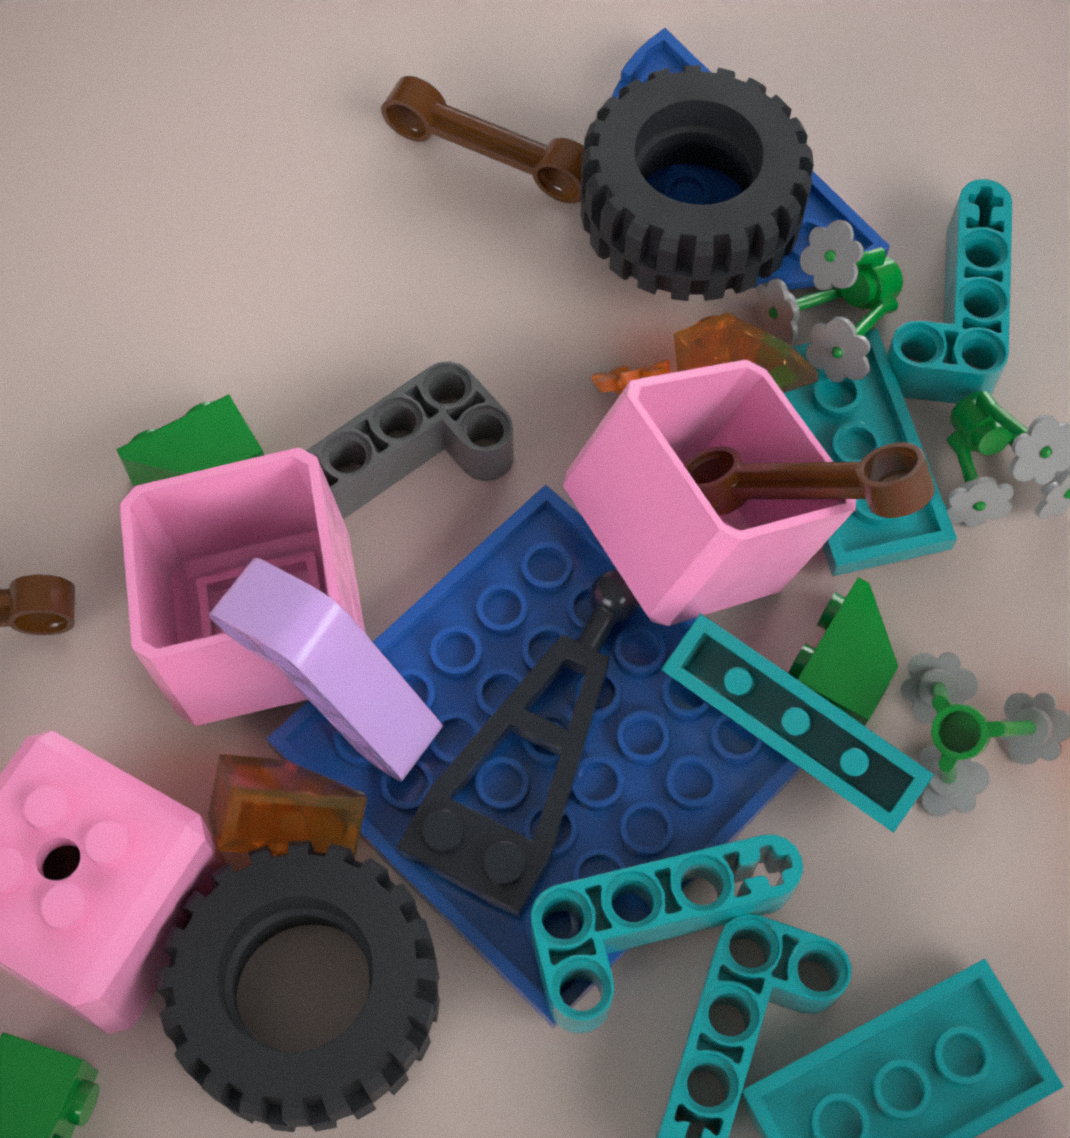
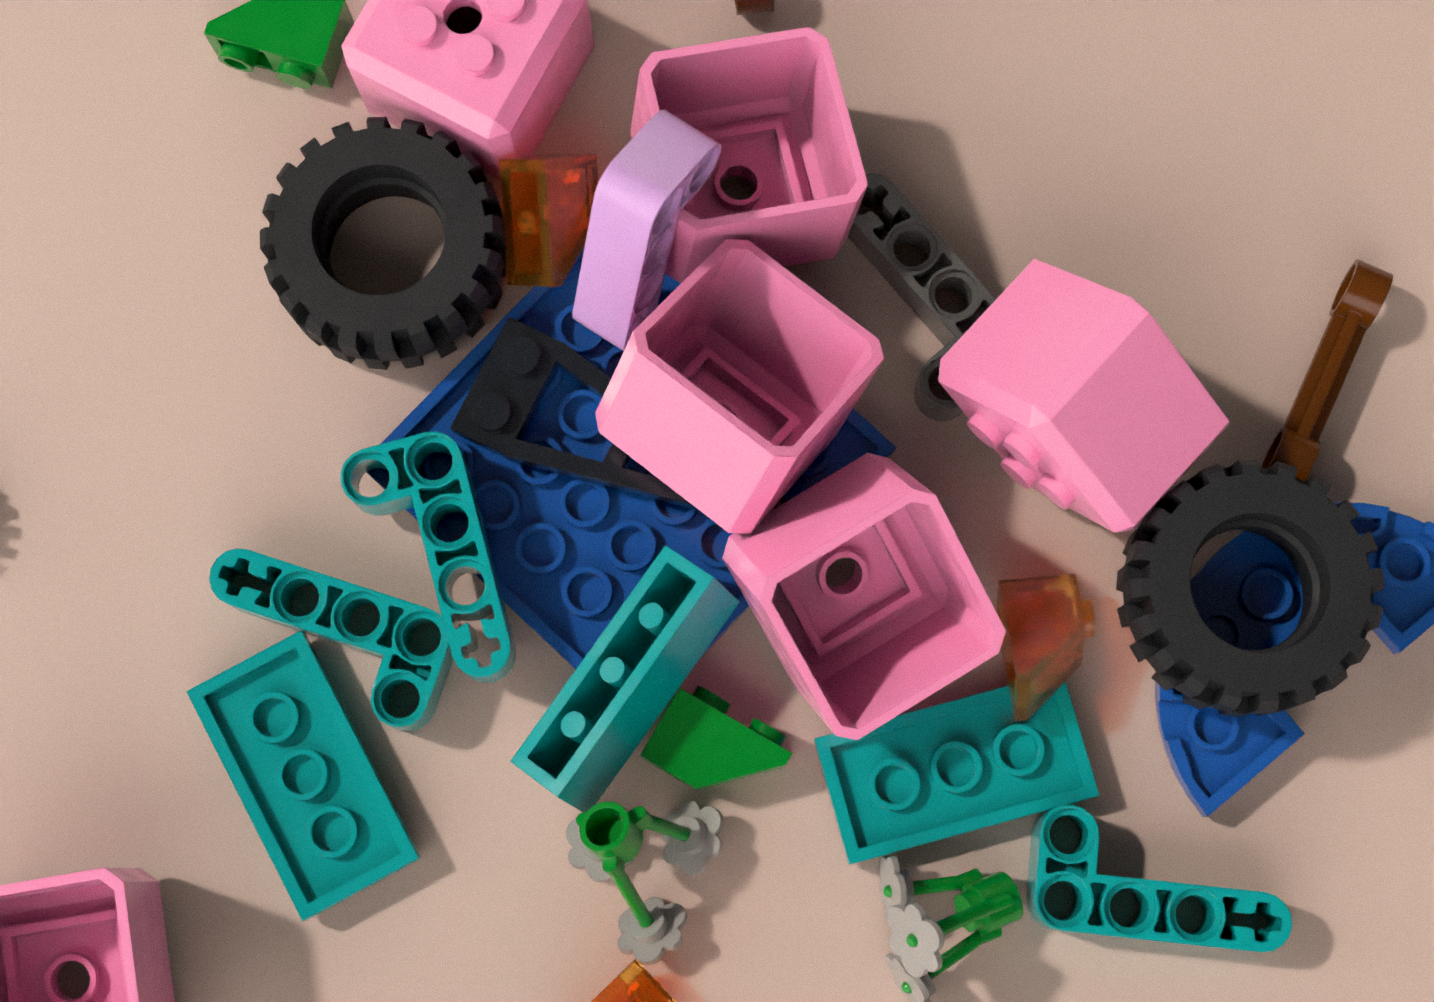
camera: 90 degrees right, 15 degrees up
(200, 440) = (919, 114): green slope -> none
(503, 581) = (737, 384): none -> bright pink plate
(514, 290) = (1081, 396): none -> bright pink plate
(619, 377) = (1024, 535): orange plant -> none
(858, 276) = (1153, 734): light grey plant -> none
(890, 479) = (867, 689): reddish brown piece -> none

